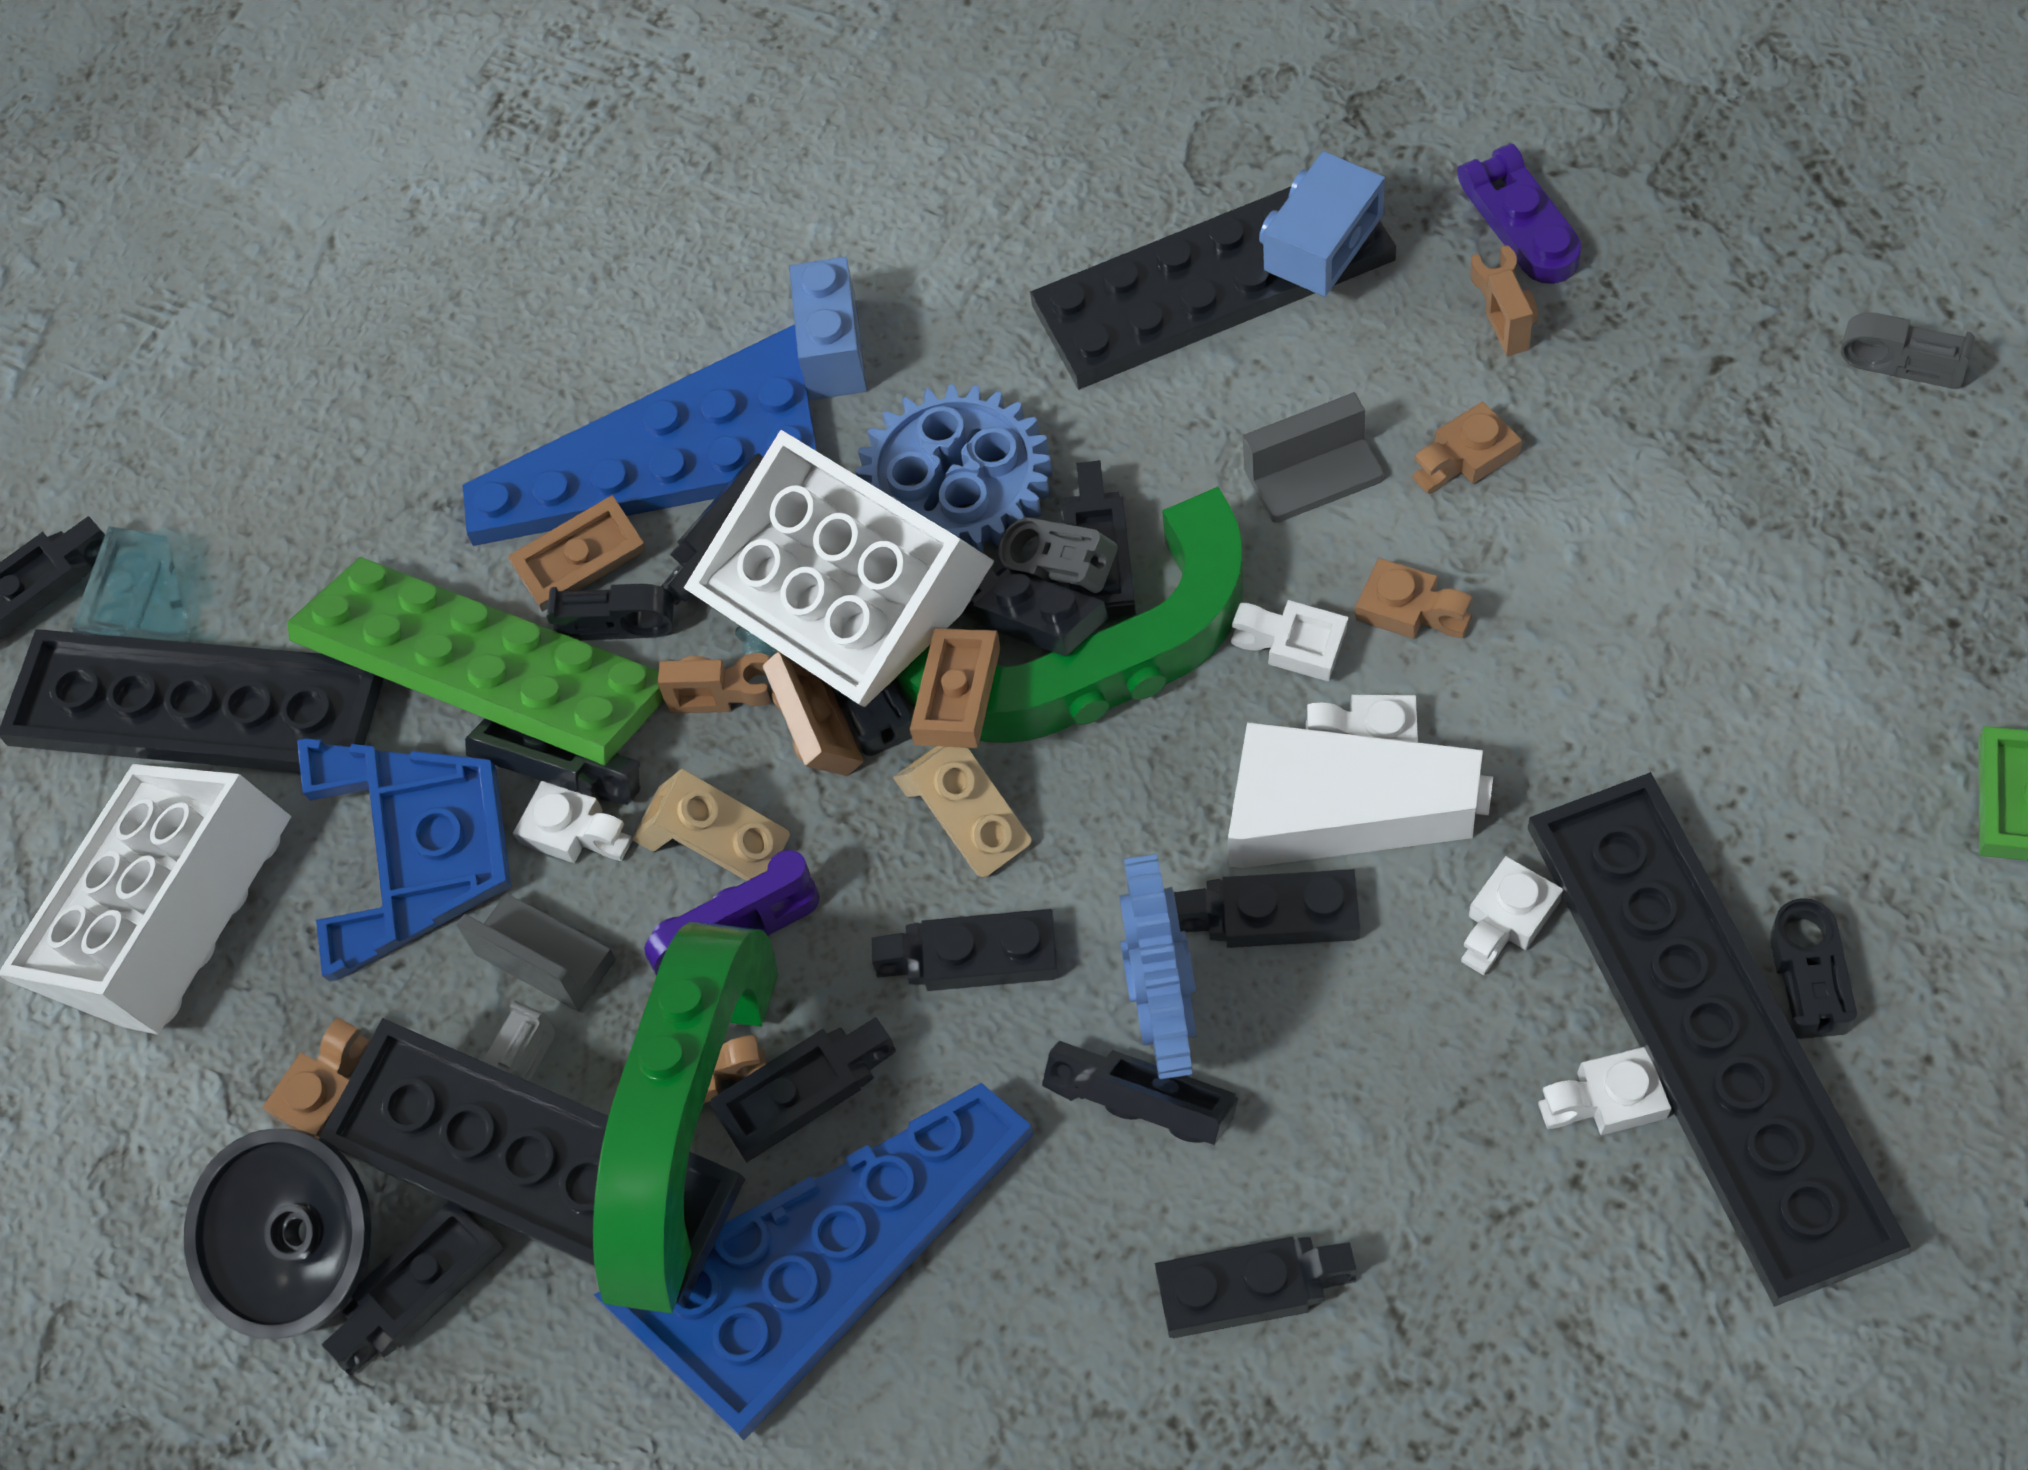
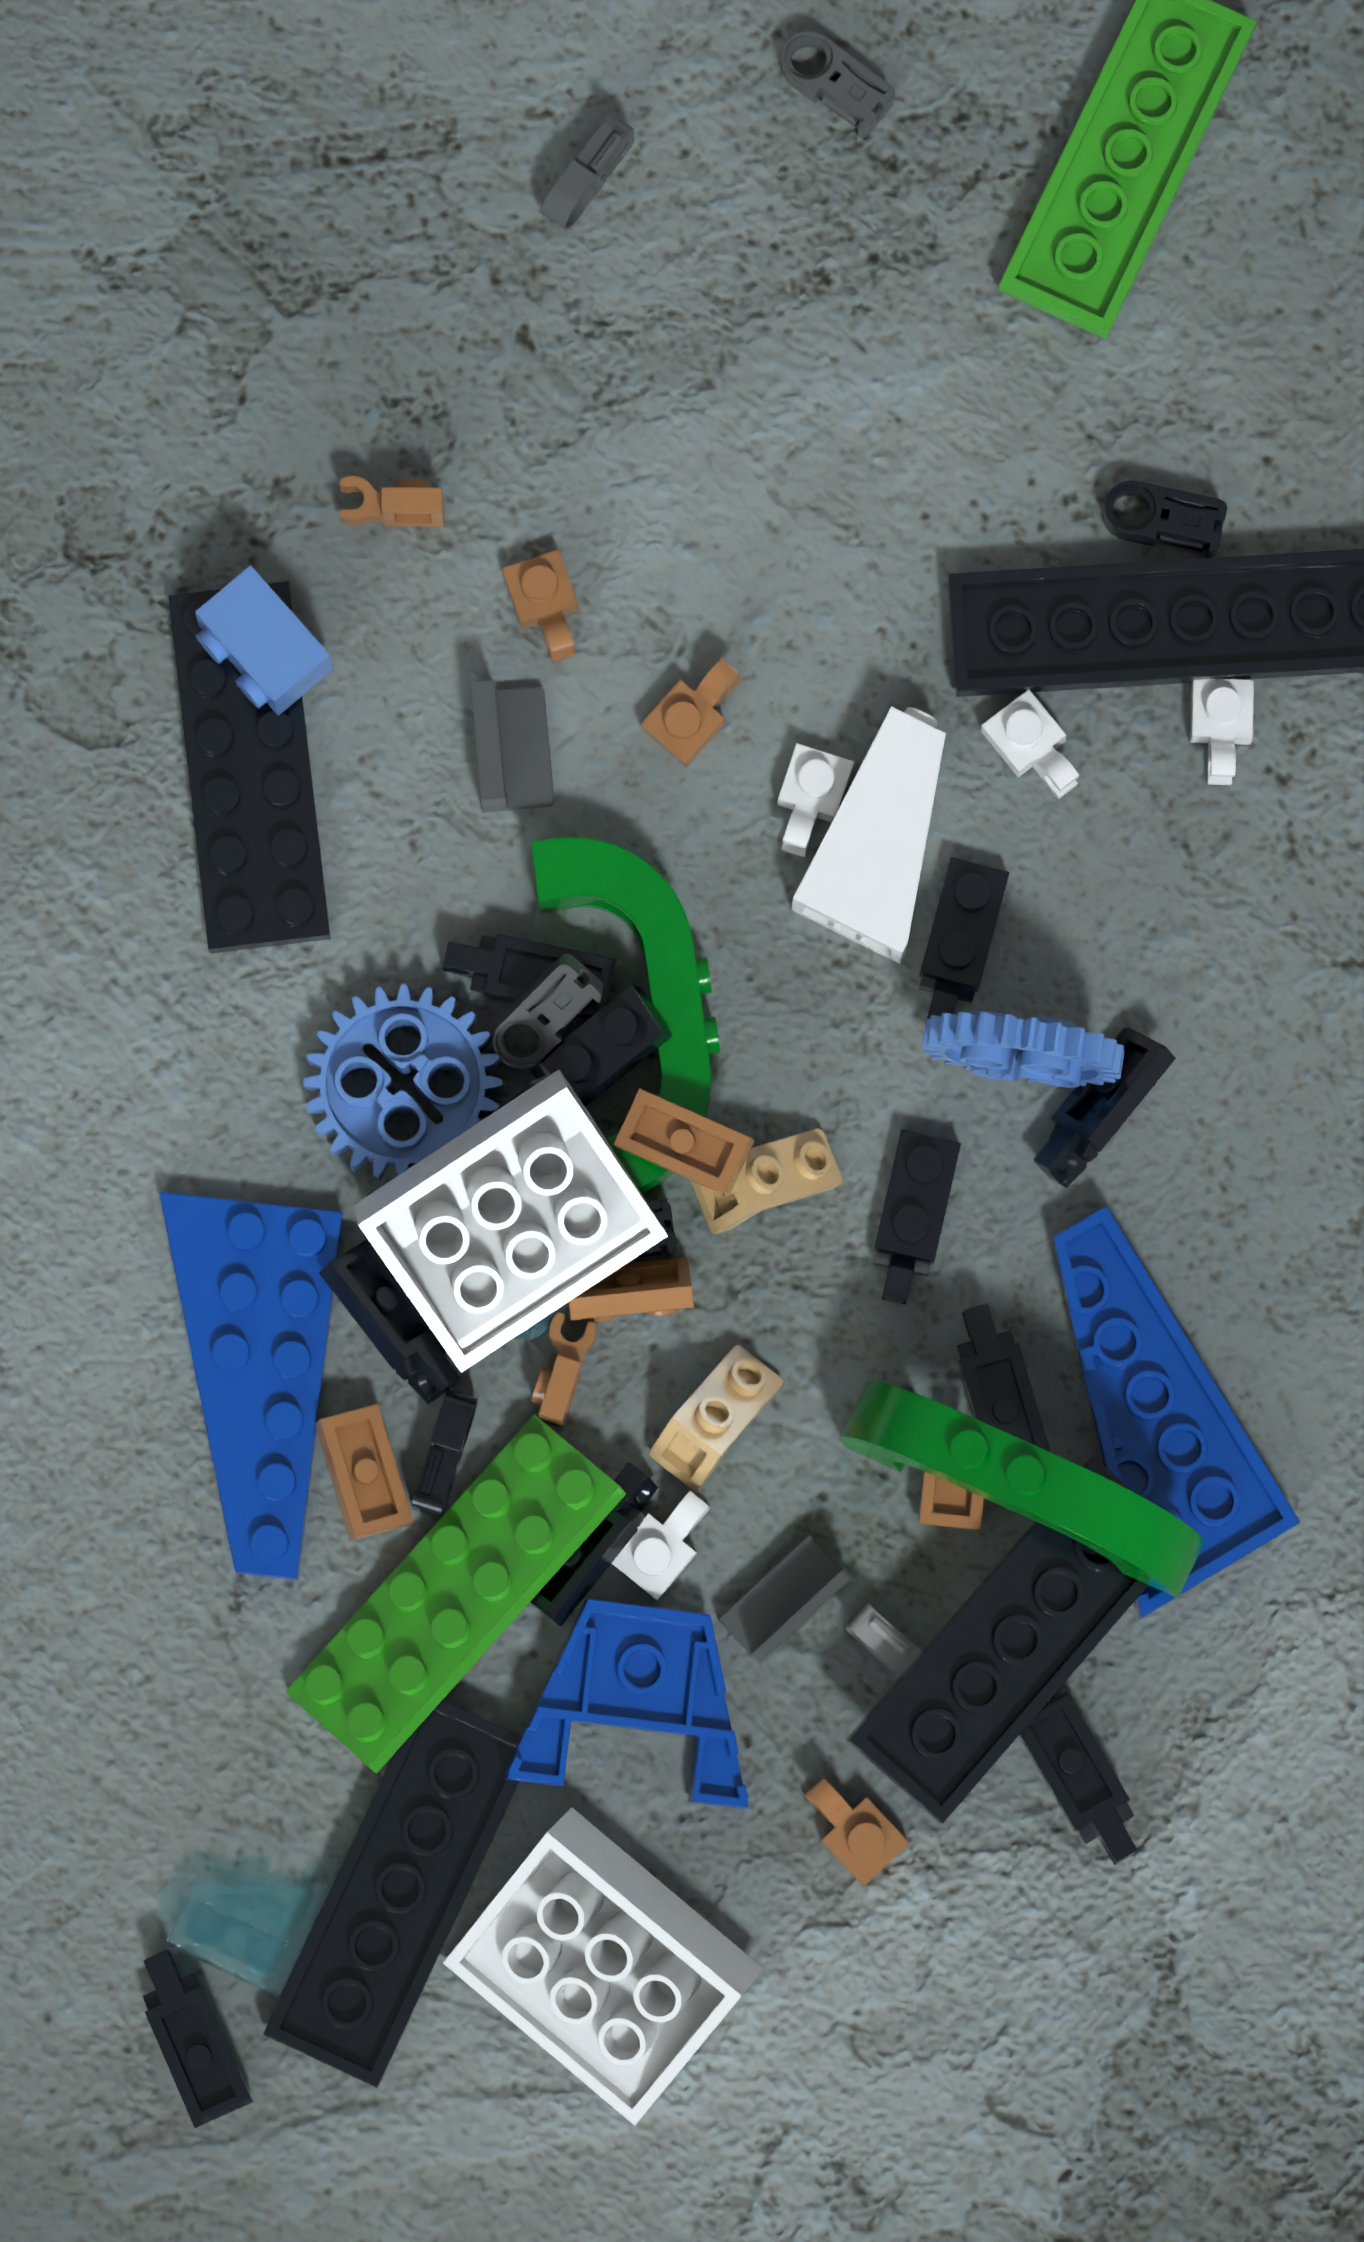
camera: 85 degrees left, 20 degrees up
(247, 1241) = (1034, 1901): black dish -> none
(761, 903) = (818, 1413): dark purple plate -> none
(827, 328) = (185, 1158): medium blue brick -> none
(1249, 1283) = (1292, 1072): black hinge -> none
(1299, 640) = (703, 823): white plate -> none
(1522, 215) = (290, 449): dark purple plate -> none

